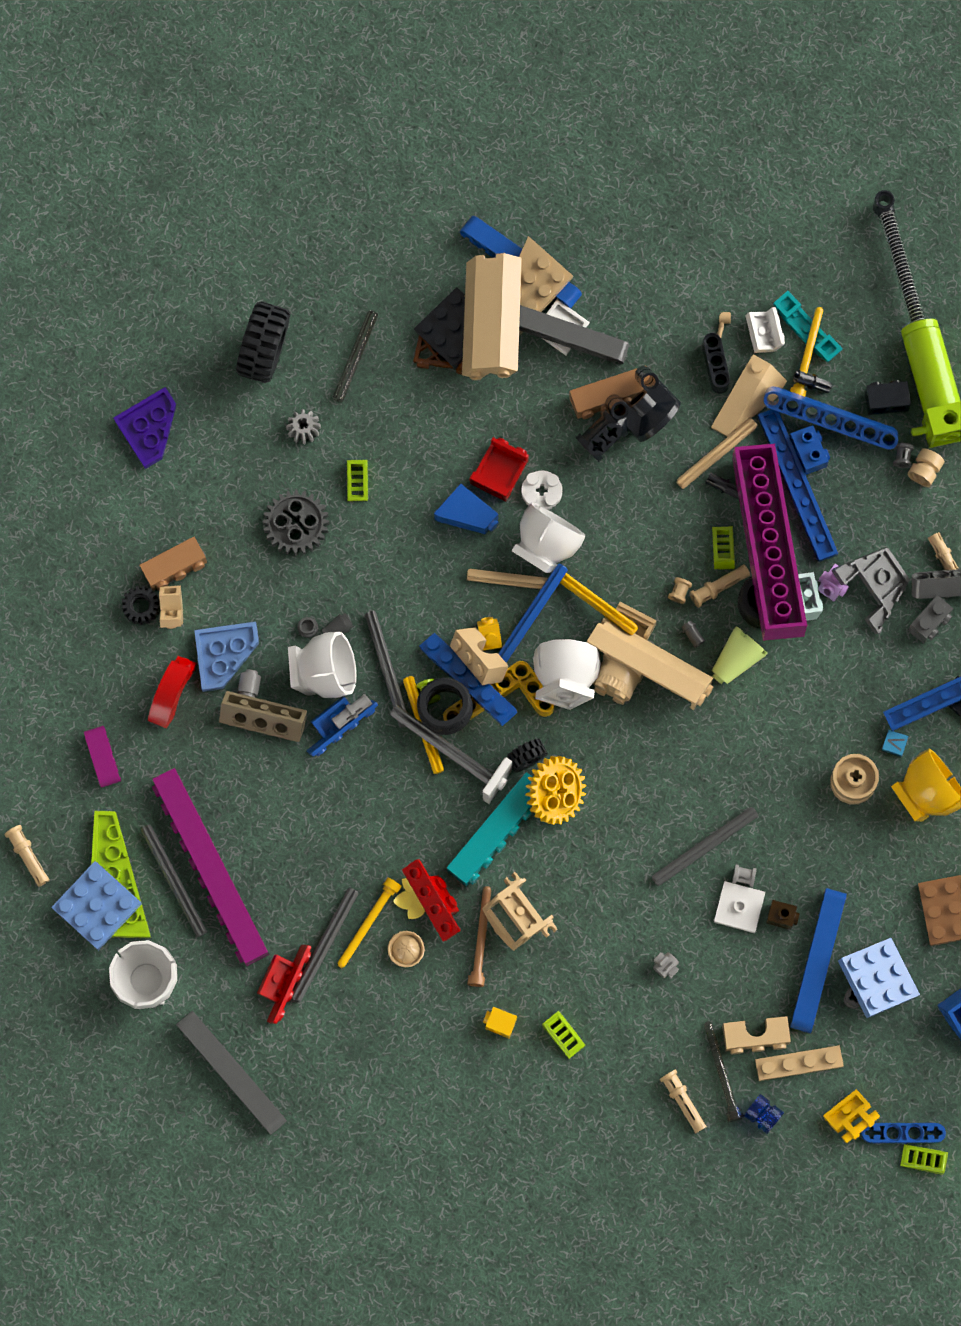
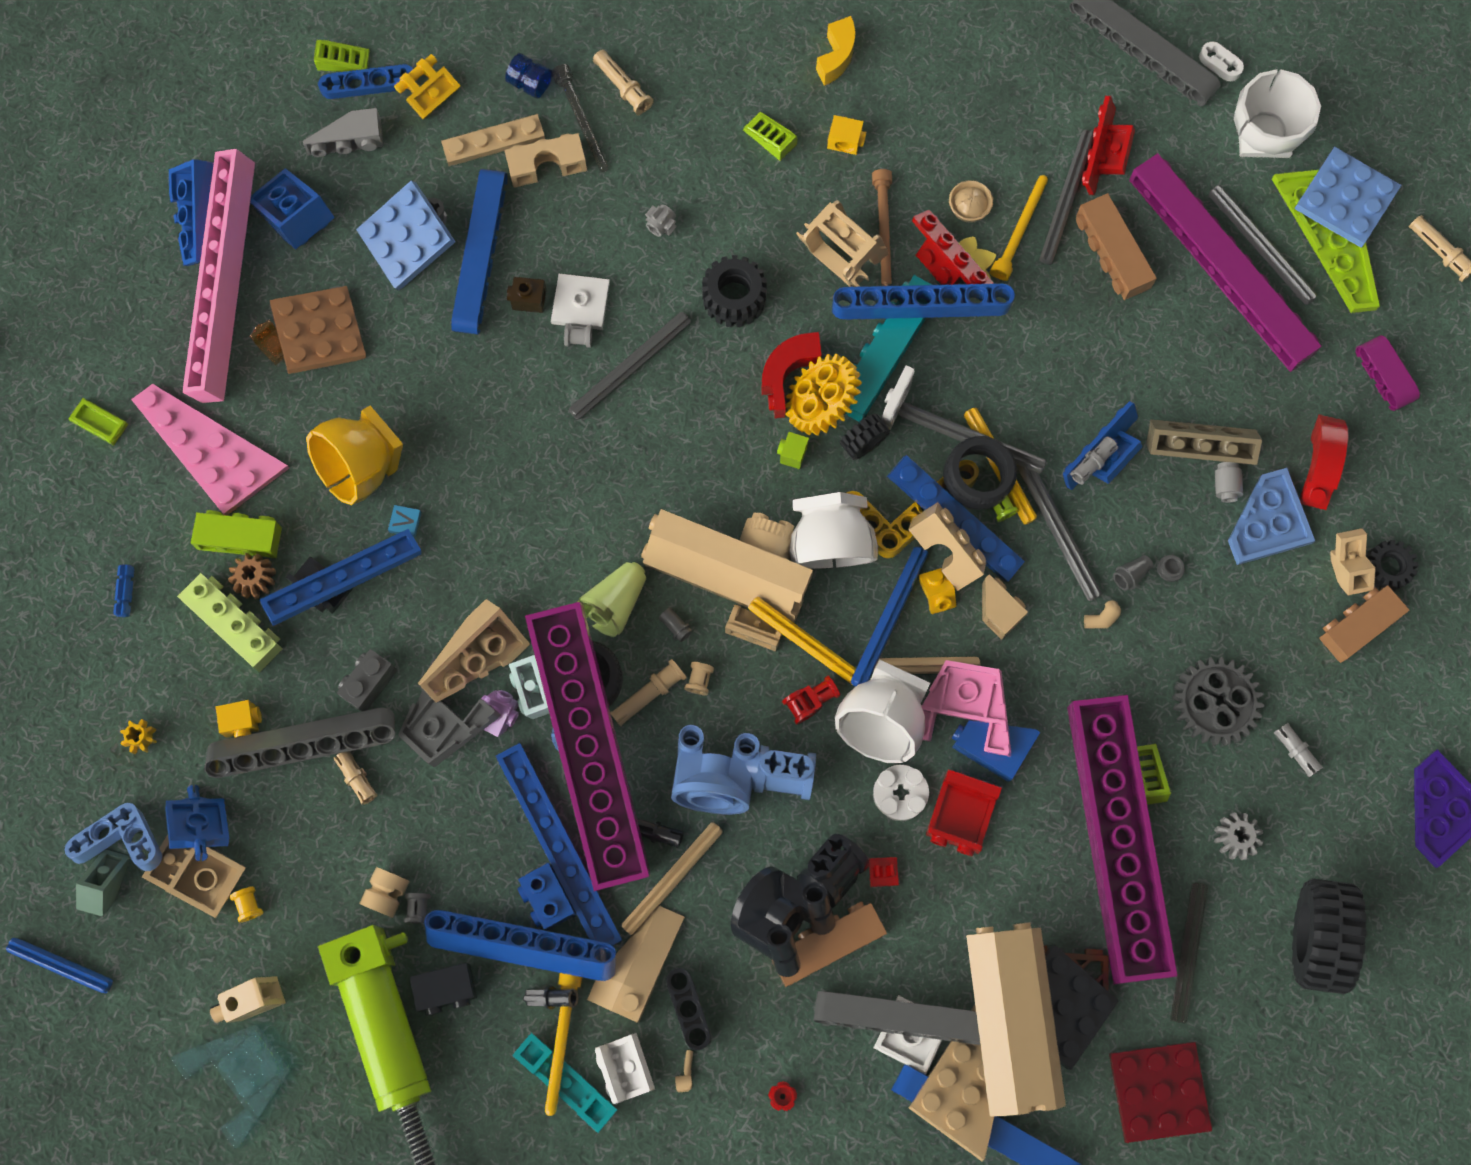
camera: 170 degrees right, 0 degrees up
(171, 1047) = (1221, 61): none -> white beam
(244, 481) = (1298, 750): none -> light grey pin
(295, 891) = (1115, 247): none -> medium nougat brick
(323, 666) = (1150, 508): white plate -> none
(366, 595) = (1106, 618): none -> tan arm
(389, 435) = (1121, 840): none -> magenta brick
(395, 270) = (1160, 1092): none -> dark red plate
(445, 610) = (999, 608): none -> tan slope
(456, 846) = (932, 293): none -> blue beam
(479, 545) = (970, 694): none -> bright pink wing
(488, 1110) = (841, 37): none -> yellow brick
(563, 438) = (883, 872): none -> red tile
(577, 833) = (784, 359): none -> red arch
(584, 755) = (793, 450): none -> lime plate
(600, 563) = (810, 699): none -> red connector
(606, 909) = (734, 271): none -> black tyre
(657, 296) = (790, 1095): none -> red plate
(669, 505) = (725, 784): none -> medium blue piece
(723, 560) = (645, 724): lime slope -> none
(843, 636) = (478, 646): none -> tan wedge
(856, 767) = (453, 448): tan wheel -> none
(914, 1083) = (351, 132): none -> light grey slope

